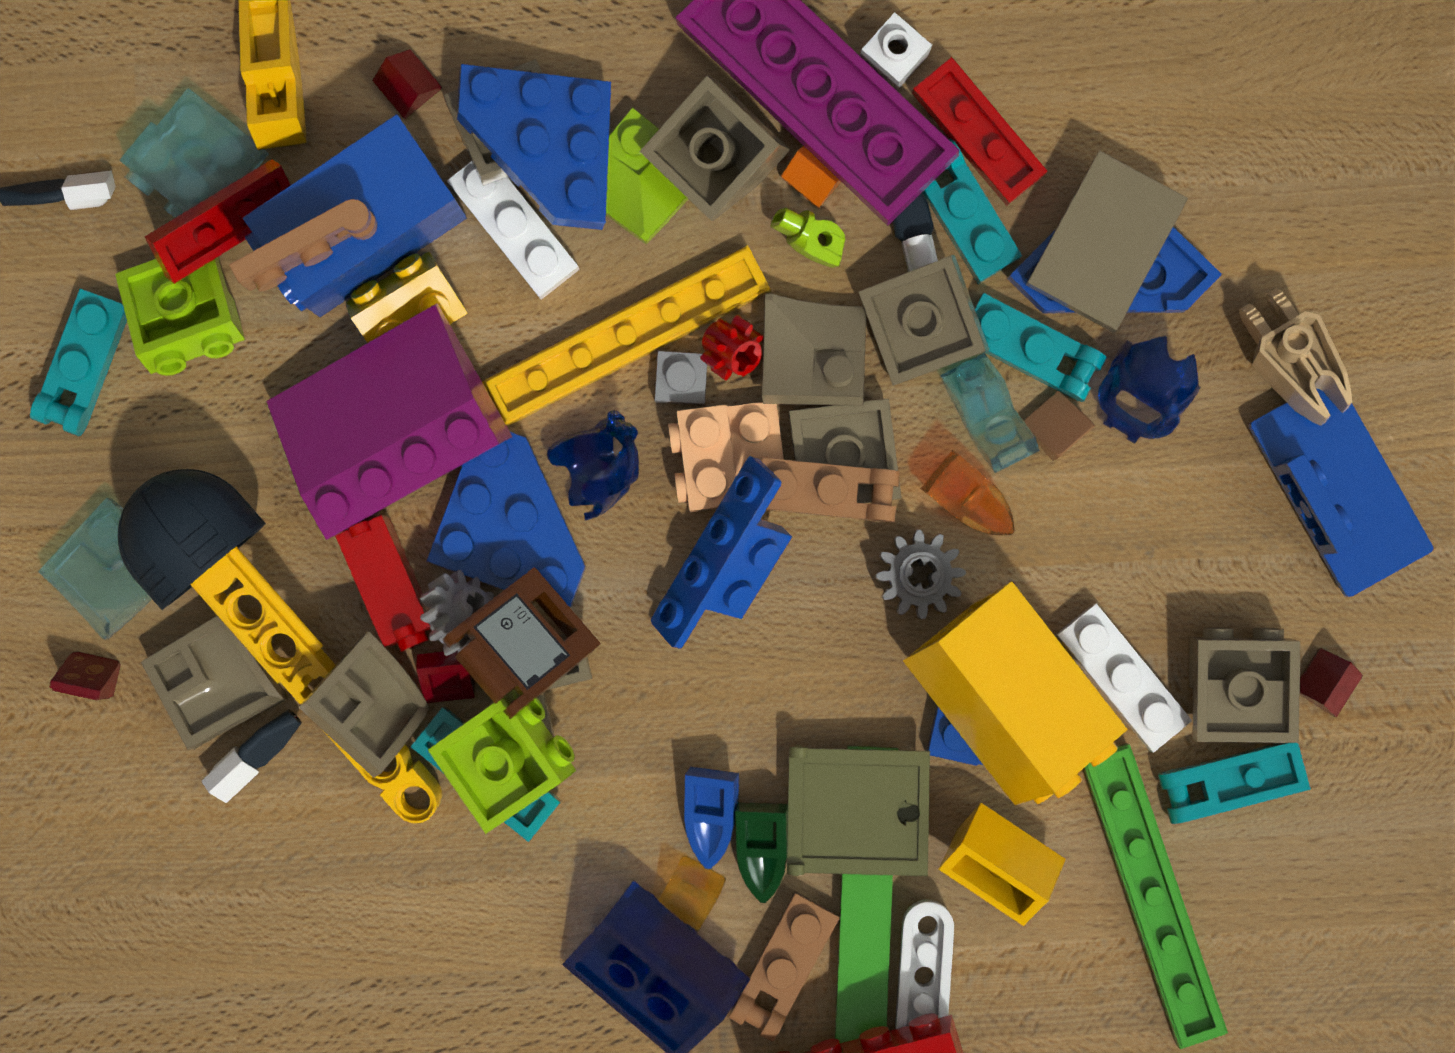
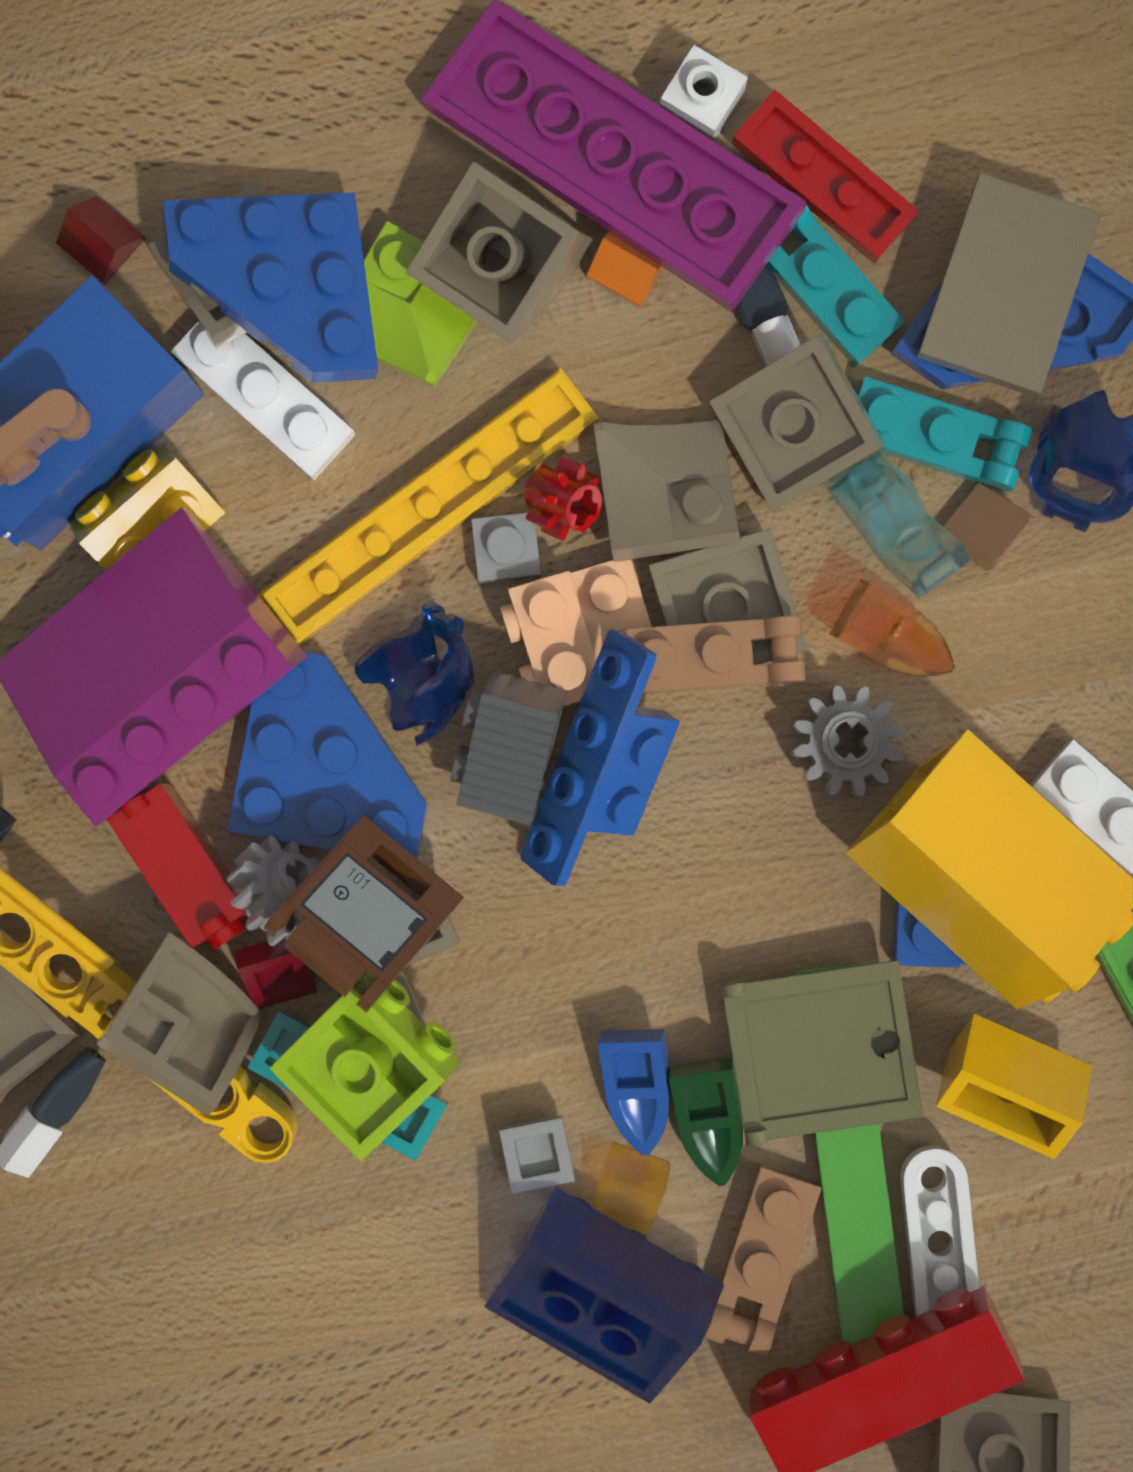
camera: 10 degrees left, 0 degrees up
(623, 853) = (537, 1154): none -> light grey plate
(656, 533) = (509, 746): none -> dark grey brick
(803, 234) = (628, 346): lime piece -> none

